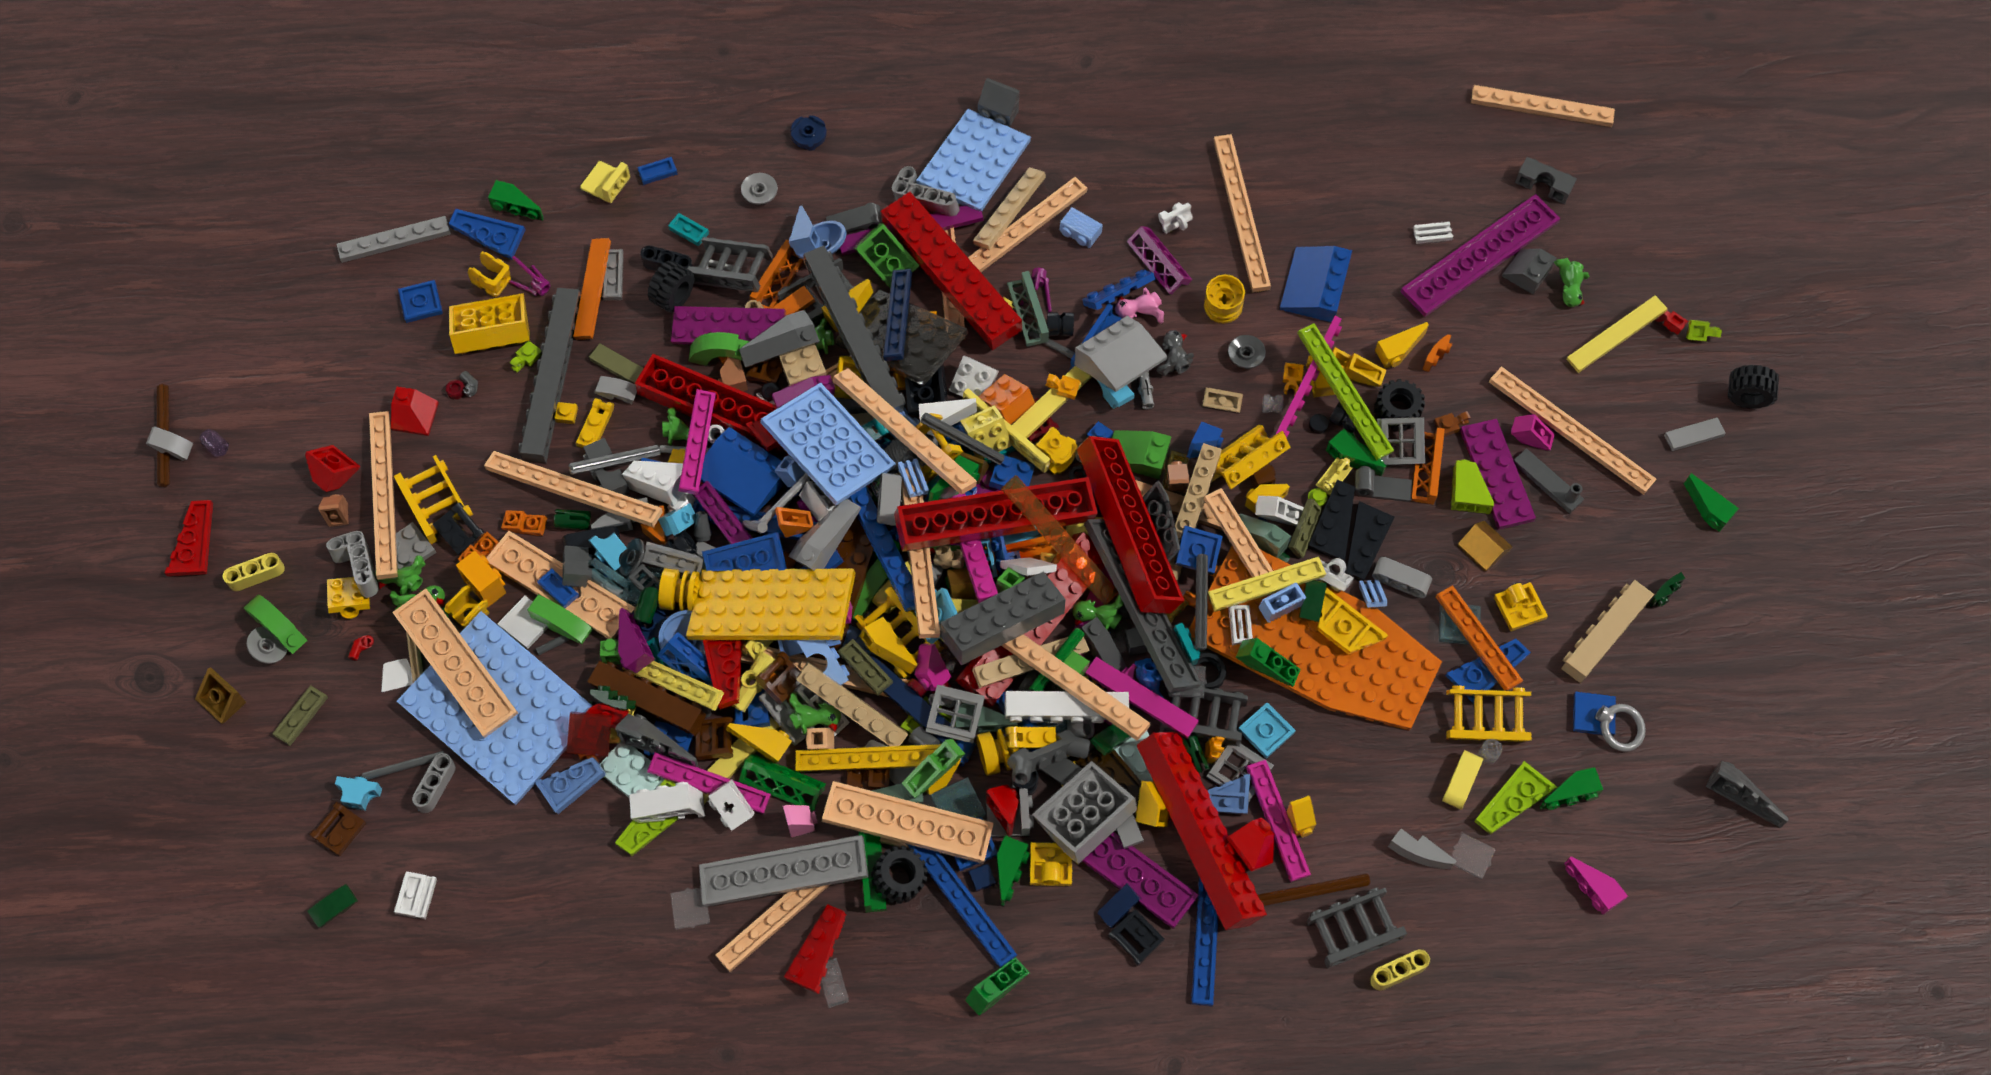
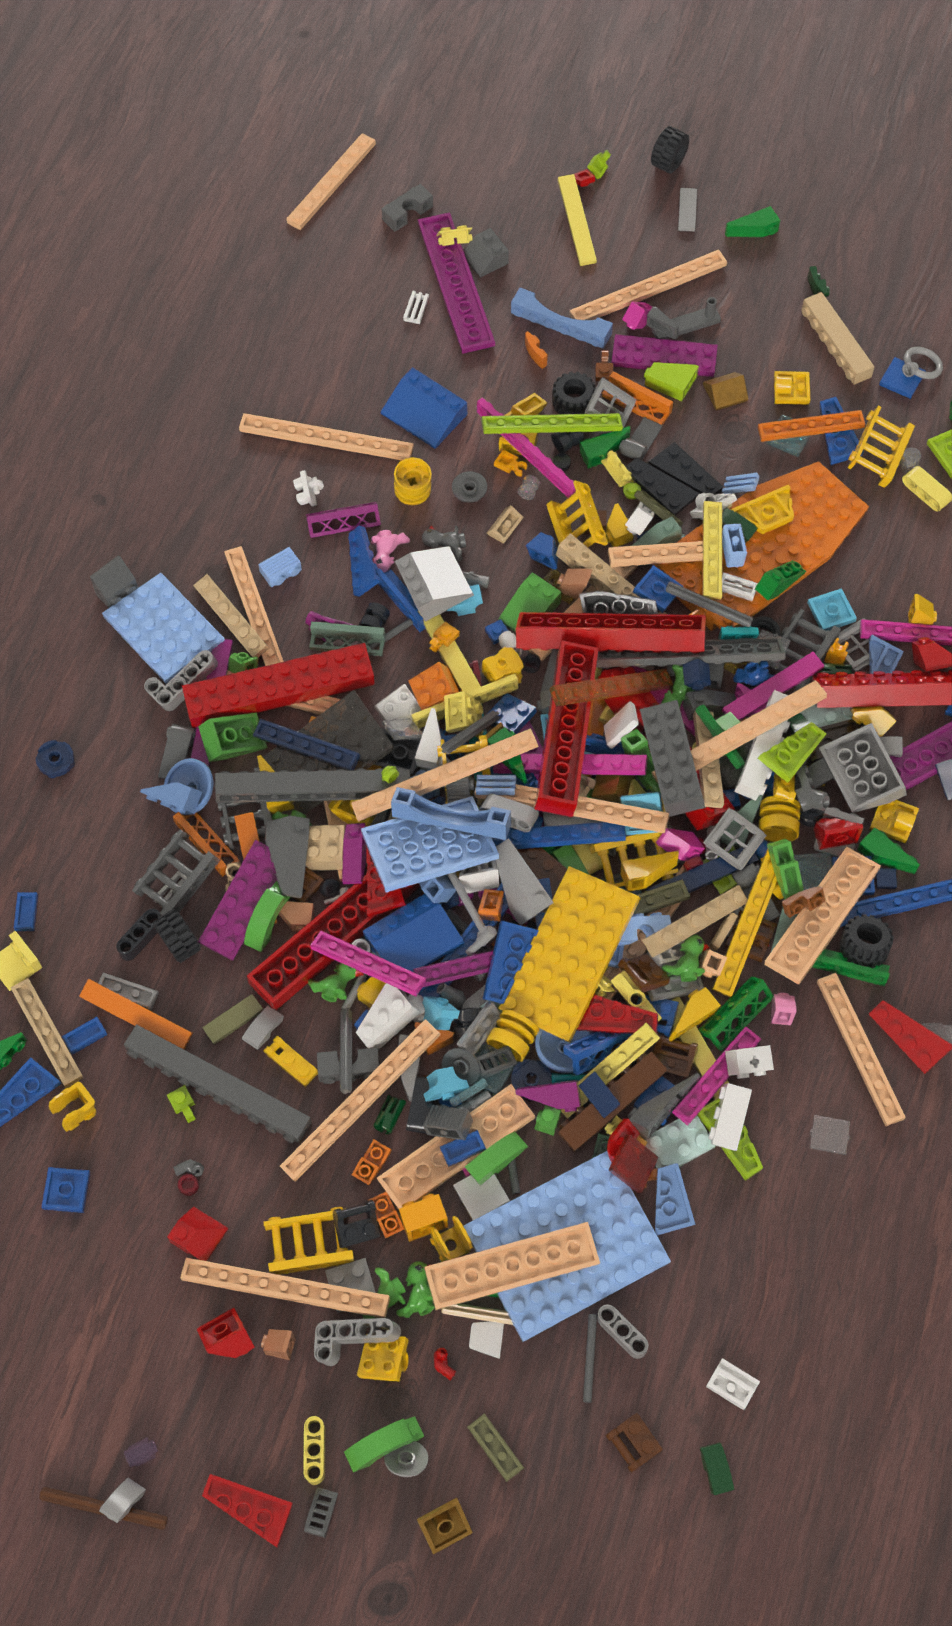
camera: 65 degrees left, 0 degrees up
(188, 605) = (314, 1530): none -> dark grey slope
(357, 792) = (603, 1410): medium azure brick -> none
(488, 323) = (128, 1126): yellow slope -> none
(539, 283) = (105, 1063): magenta plant -> none
(553, 228) = (47, 1033): none -> tan plate
(561, 259) = (84, 1035): none -> blue tile
(566, 413) = (266, 1083): yellow plate -> none
(612, 698) = (601, 1134): dark green slope -> none
(643, 680) = (599, 1095): none -> dark blue slope
(646, 605) = (518, 1068): dark green arm -> none
(688, 229) = (111, 903): teal plate -> none
(759, 182) = (95, 816): light grey dish -> none
(783, 871) = (829, 1037): light grey plate -> none
(859, 740) = (722, 931): none -> tan tile
(861, 473) = (412, 807): none -> medium blue arch
(887, 386) = (389, 774): none -> lime plate
(912, 798) = (807, 899): none -> dark orange slope
(948, 385) = (402, 729): none -> clear piece
(965, 232) = (242, 662): none -> bright green brick
(1062, 730) = (793, 751): none -> lime wing
(1117, 617) = (696, 674): none -> dark blue brick
(1396, 347) = (517, 373): yellow slope -> none
(1402, 577) = (732, 458): light grey beam -> none
(1488, 398) = (591, 331): none -> medium blue arch
(1529, 452) = (661, 323): none -> dark grey slope
(1536, 236) = (448, 235): none -> light yellow hinge
(1572, 277) = (510, 227): bright green animal -> none

